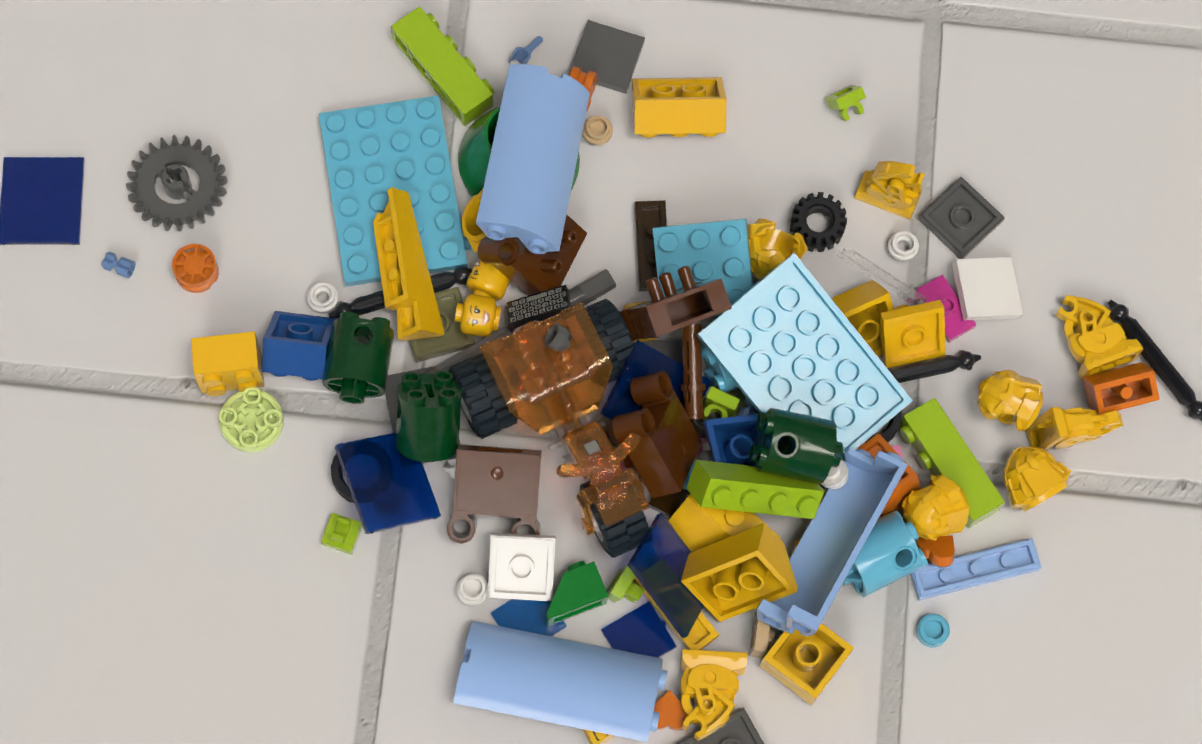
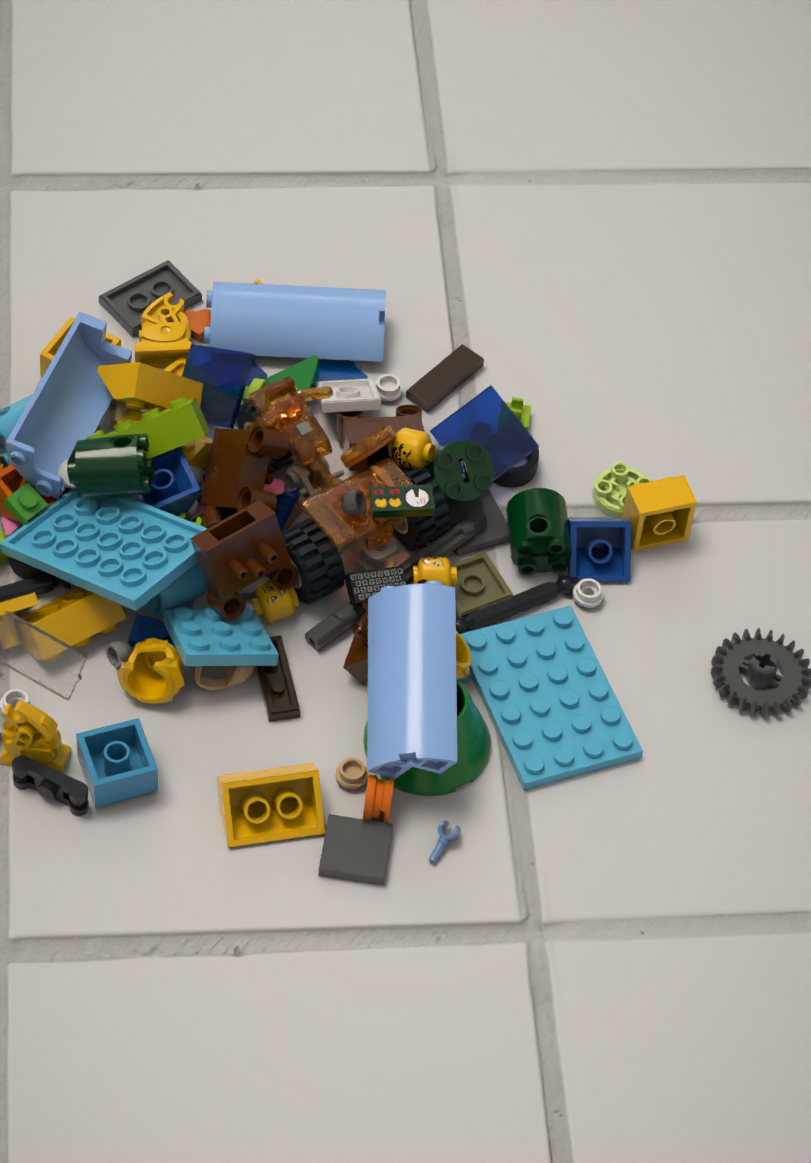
camera: 170 degrees right, 20 degrees down
(124, 267) = (784, 597): medium blue piece -> none
(196, 268) = (716, 602): orange wheel -> none
(405, 270) = (513, 608): yellow wedge -> none
(405, 598) = (444, 378): none -> dark brown tile
(442, 65) = (528, 809): lime brick -> none
(478, 428) = (411, 448): none -> yellow head
(506, 338) = (402, 501): none -> tile
(525, 426) = (367, 446): none -> clear yellow tile
(816, 156) = (117, 762): none -> dark azure brick
(819, 205) = (103, 698): black tyre -> none
(845, 98) = (90, 832): lime tile -> none
(870, 147) = (50, 784): none -> black plate
(883, 440) = (25, 503): none -> bright green plate

